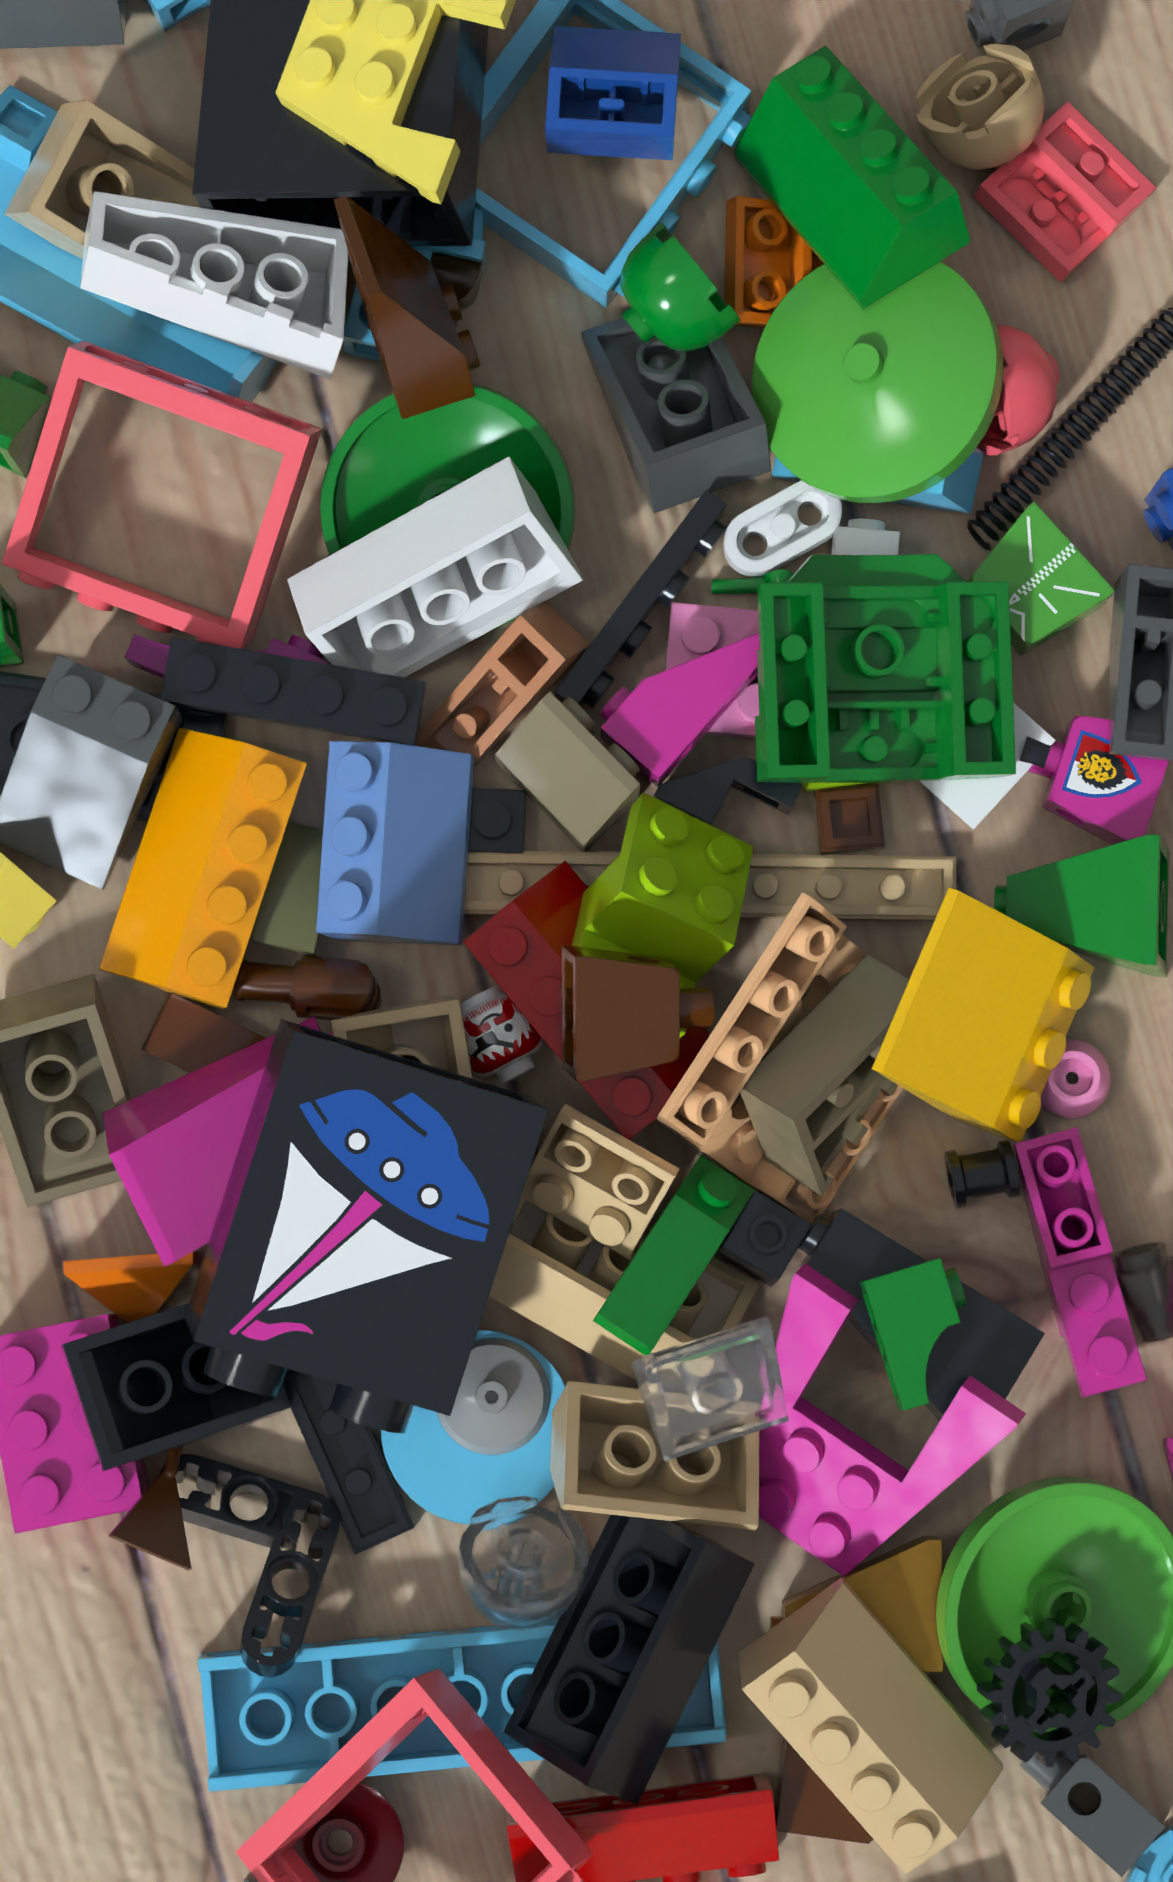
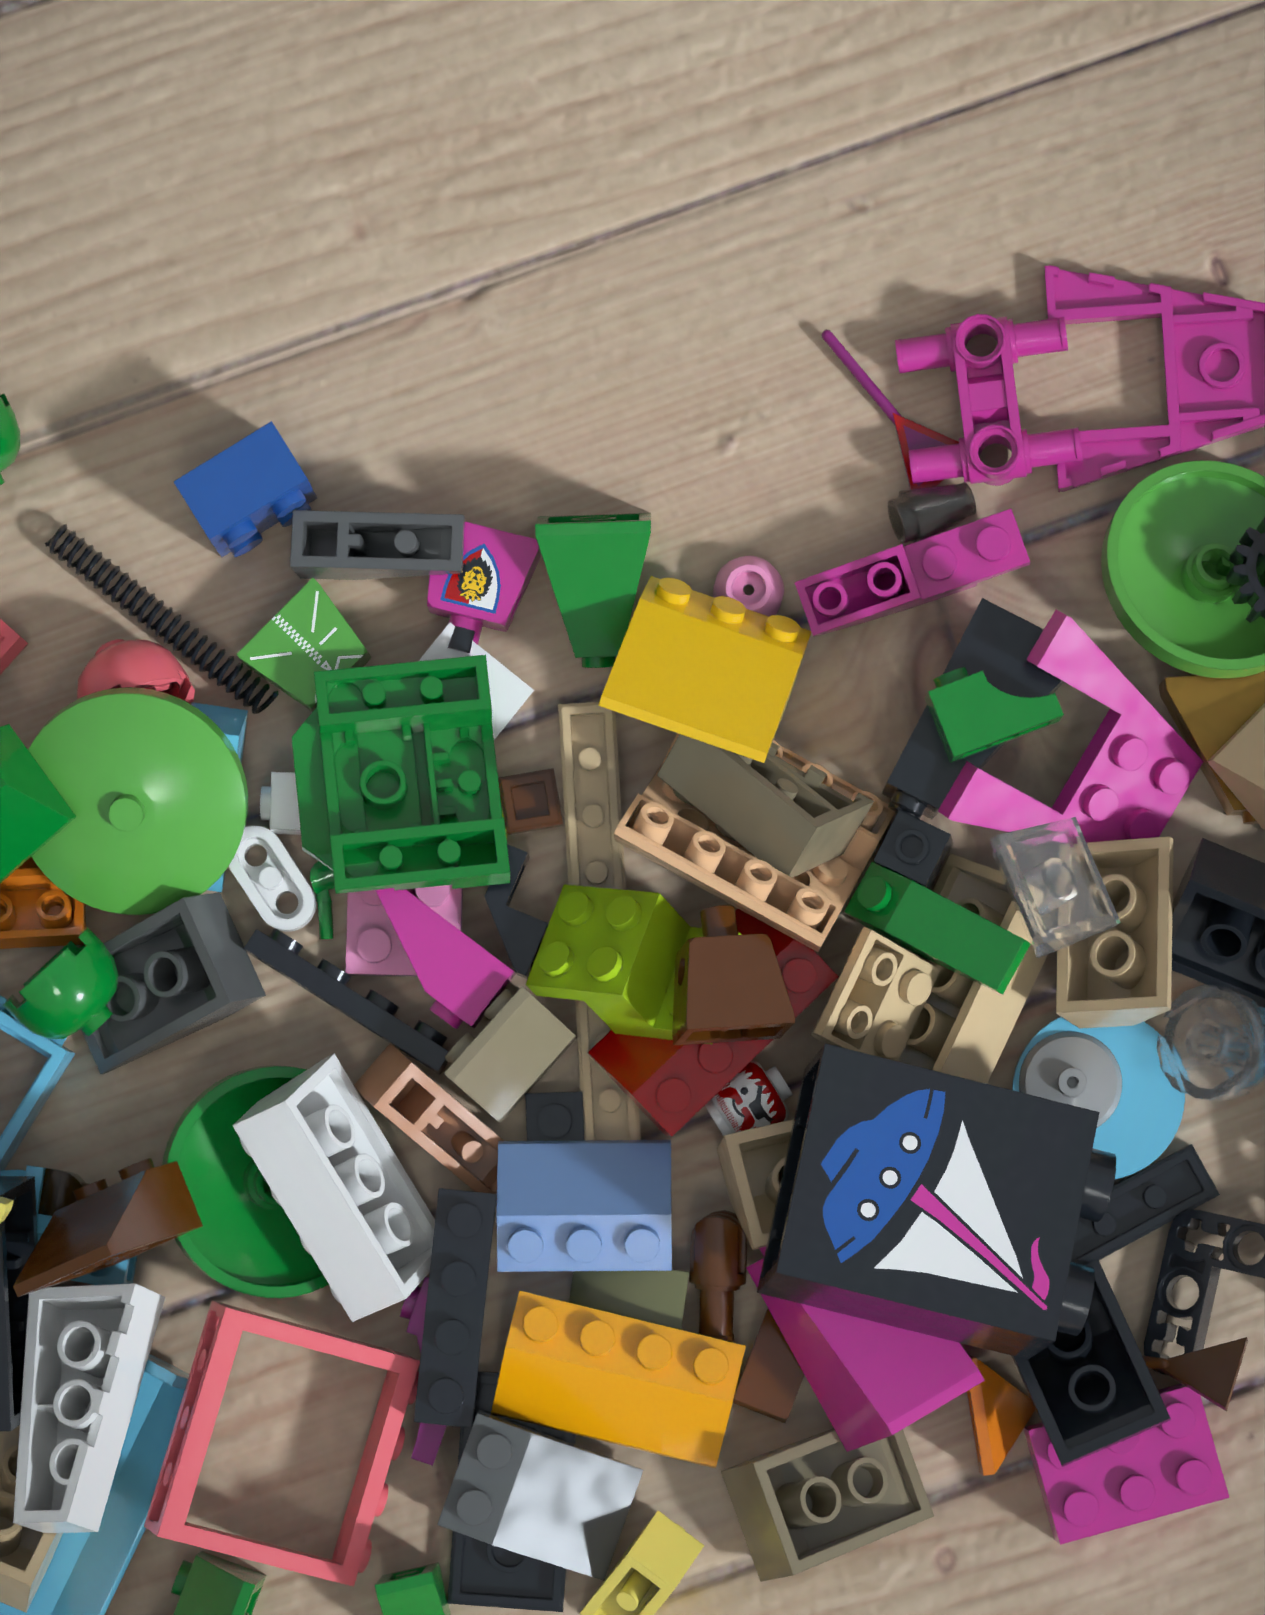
camera: 85 degrees left, 0 degrees up
(982, 1173) = (840, 663): black bush -> none

